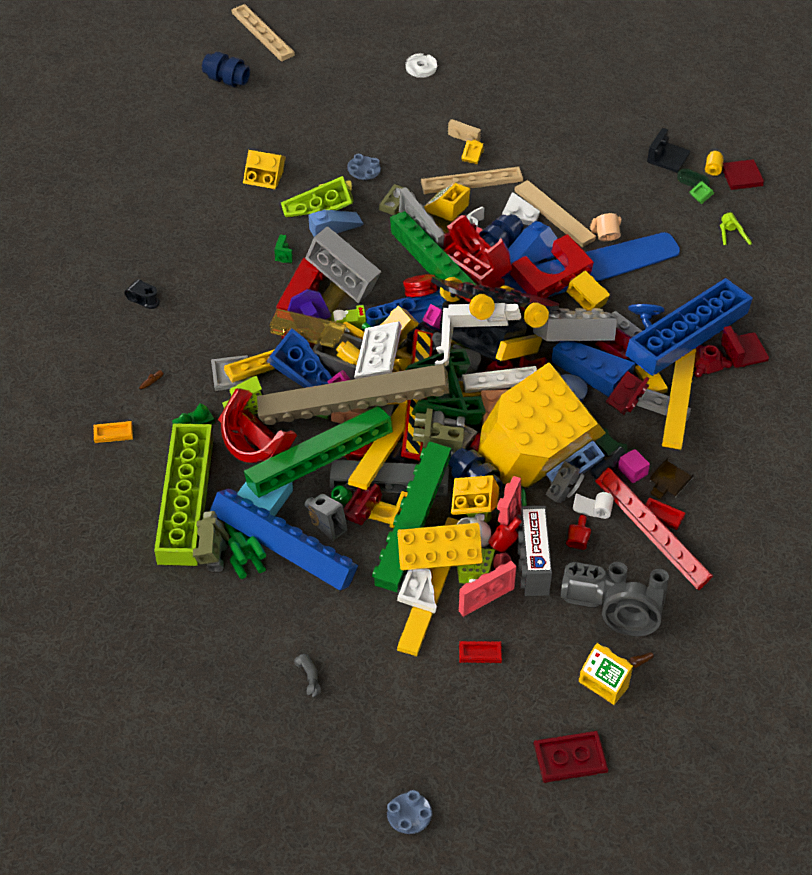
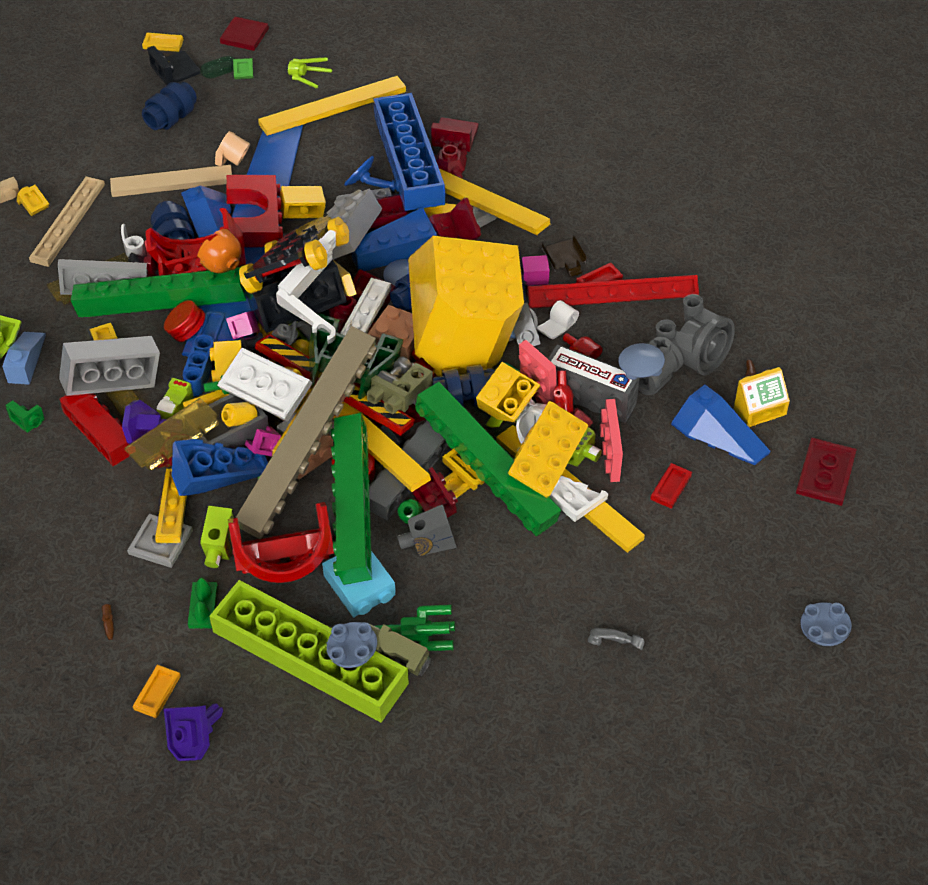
camera: 60 degrees left, 0 degrees up
(90, 462) = (190, 729): none -> dark purple piece
(191, 508) = (351, 644): none -> sand blue dish
(284, 539) = (438, 582): blue brick -> none
(380, 253) = (103, 332): none -> yellow plate
(391, 201) = (38, 291): olive piece -> none
(449, 202) = (87, 243): yellow slope -> none
(470, 263) = (221, 252): none -> orange cylinder
(522, 209) = (142, 204): white wing -> none
(560, 655) = (713, 421): none -> blue wedge
(564, 566) = (641, 361): none -> sand blue dish
(628, 172) = (169, 105): none -> dark blue piece
(690, 136) = (163, 41): none -> yellow tile
(710, 262) = (331, 105): none -> yellow tile
(714, 163) = (216, 42): yellow brick -> none

